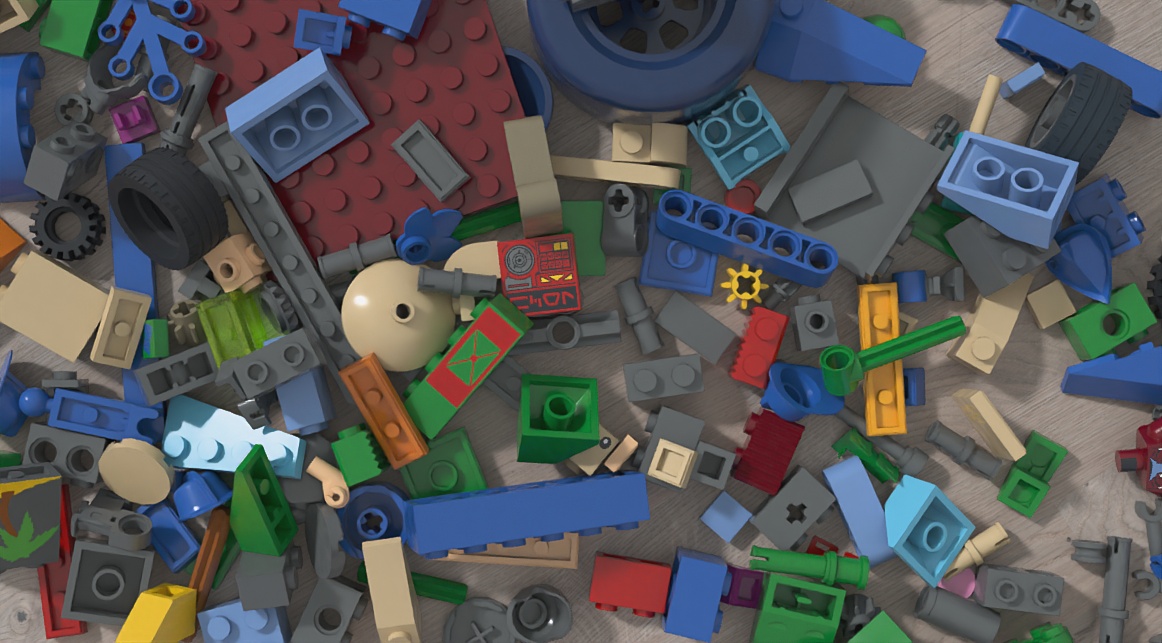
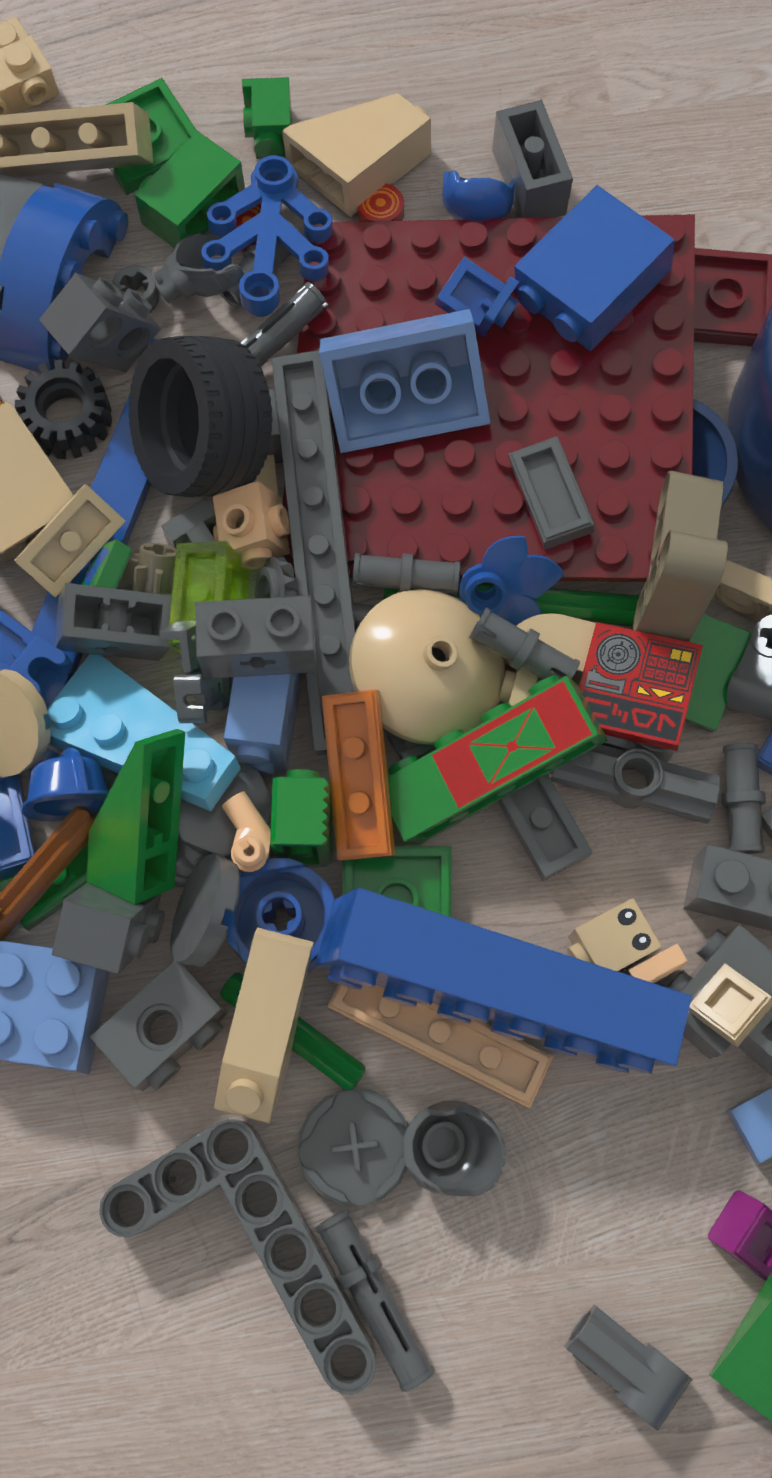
camera: 25 degrees right, 15 degrees down
(134, 120) = (202, 319): magenta tile -> none
(556, 418) = (585, 881): green slope -> none
(629, 584) = (599, 1160): red brick -> none
(695, 595) = (695, 1212): blue brick -> none

